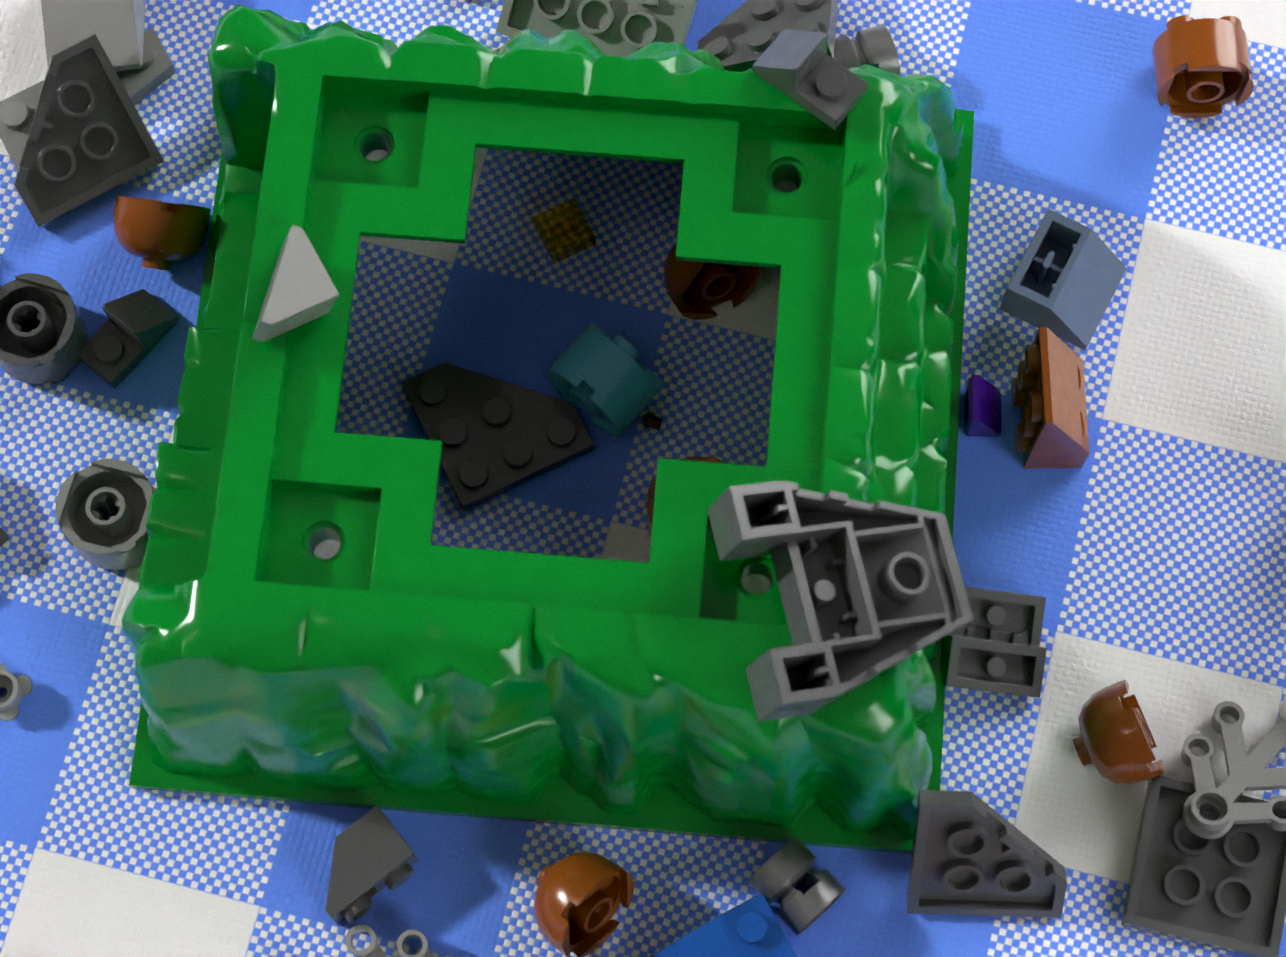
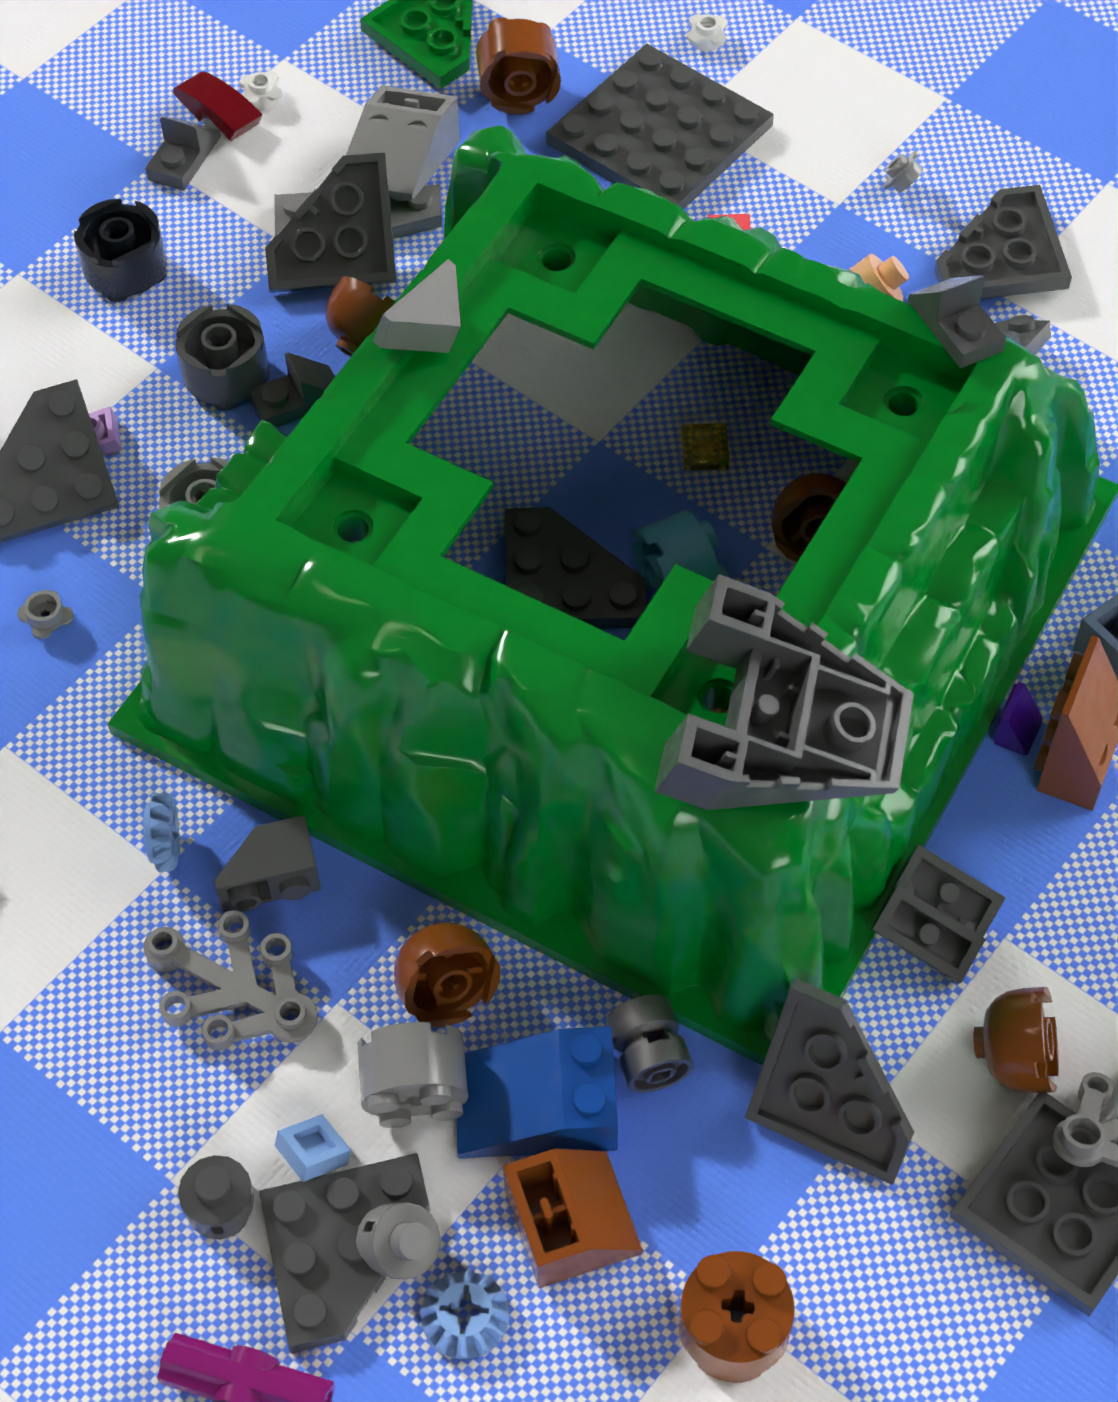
camera: 25 degrees right, 15 degrees down
(247, 879) = (162, 832): none -> light blue gear

